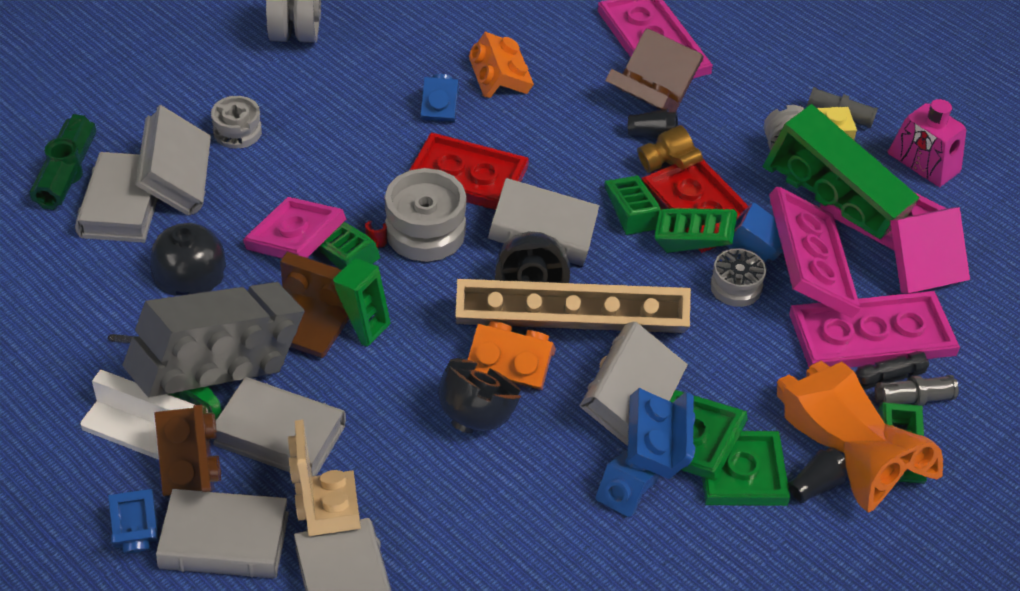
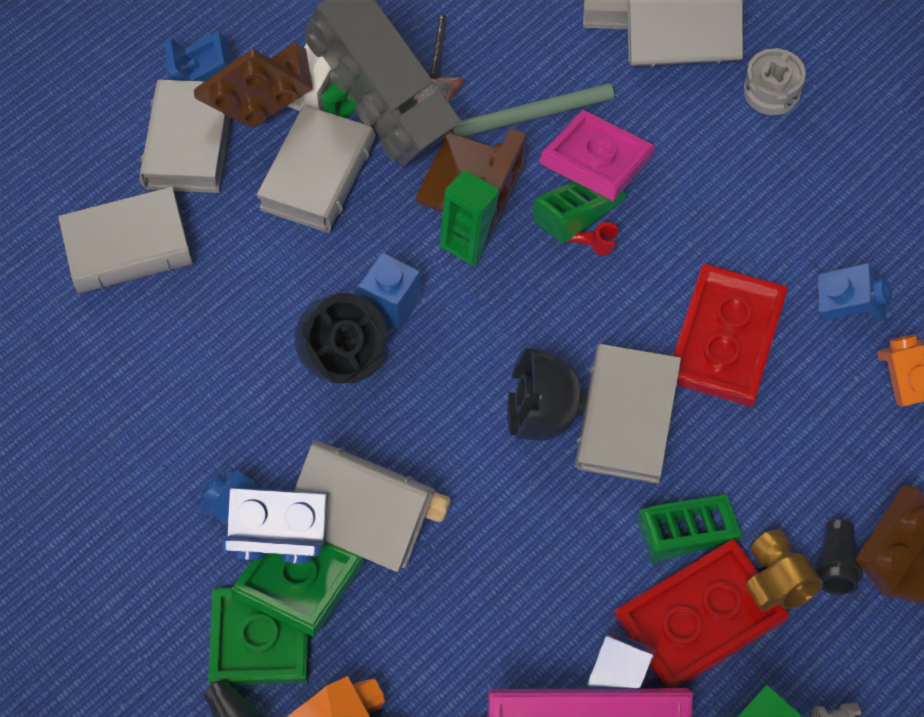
camera: 95 degrees right, 15 degrees up
(187, 259) = (545, 61): black cylinder -> none
(232, 261) = (534, 110): none -> sand green bar
(323, 500) = (215, 195): tan bracket -> none
(422, 365) = (392, 289): none -> blue brick
(425, 214) = (620, 278): light grey wheel -> none
(514, 355) = (419, 383): orange bracket -> none
(572, 305) = (477, 443): tan brick -> none
(673, 222) = (623, 585): green slope -> none
(738, 280) = (555, 649): light grey wheel -> none

